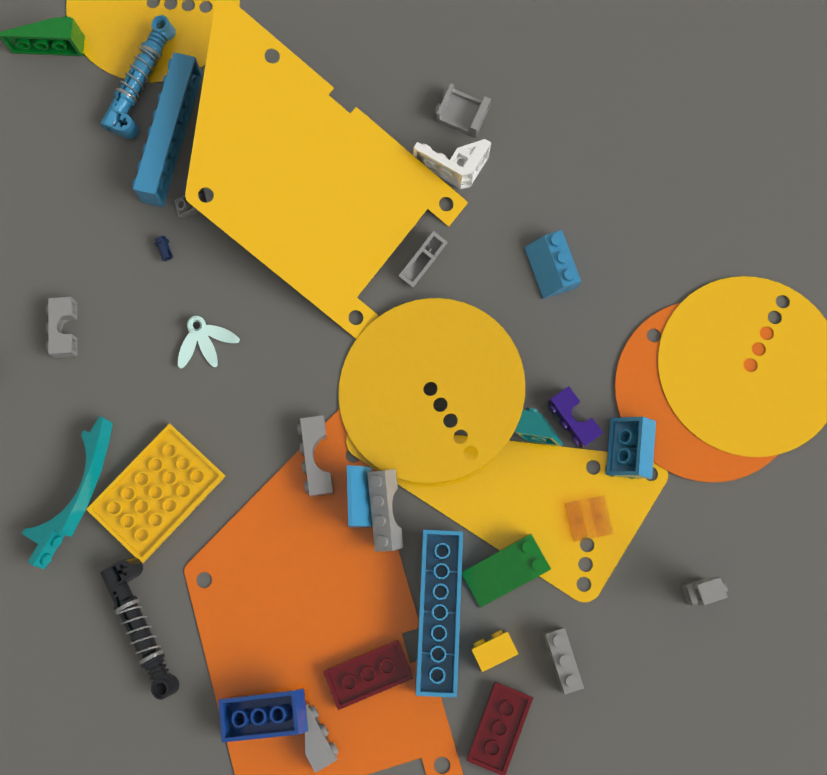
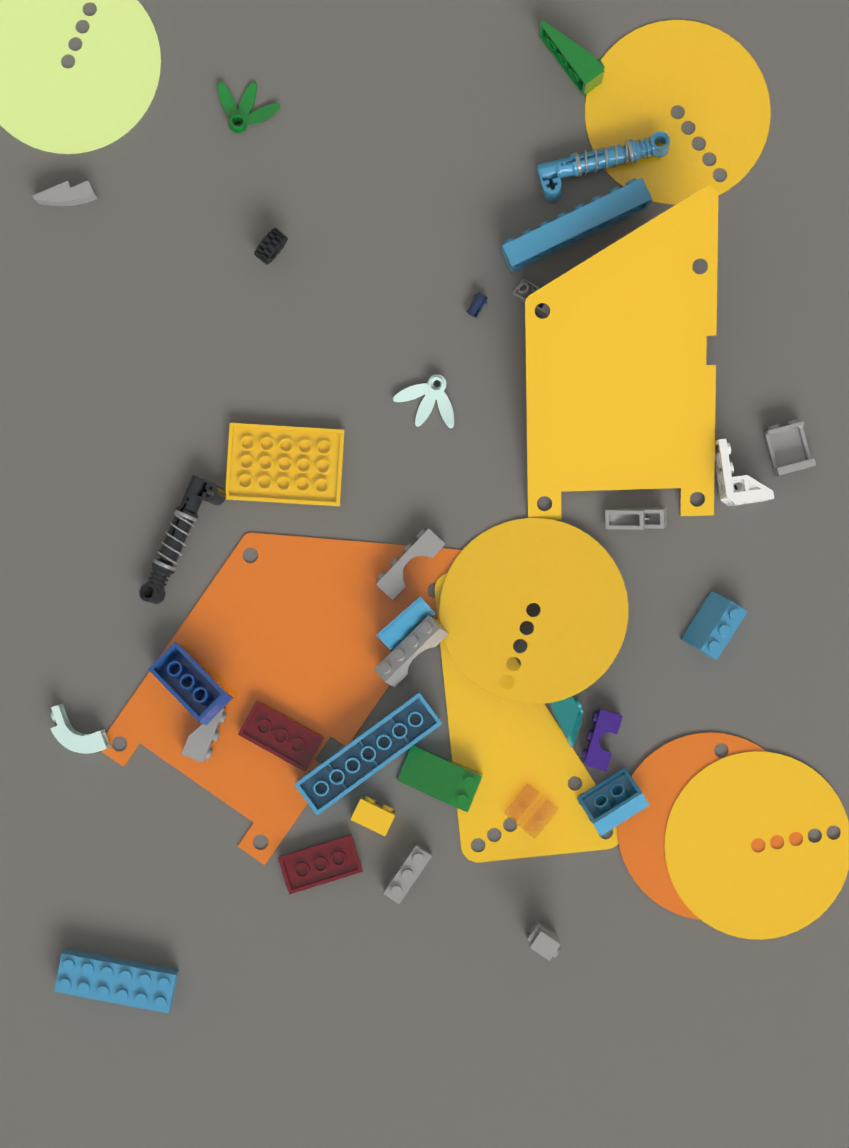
camera: 55 degrees right, 10 degrees up
(50, 534) = (190, 413): teal slope -> none
(59, 312) = (360, 268): light grey arch -> none

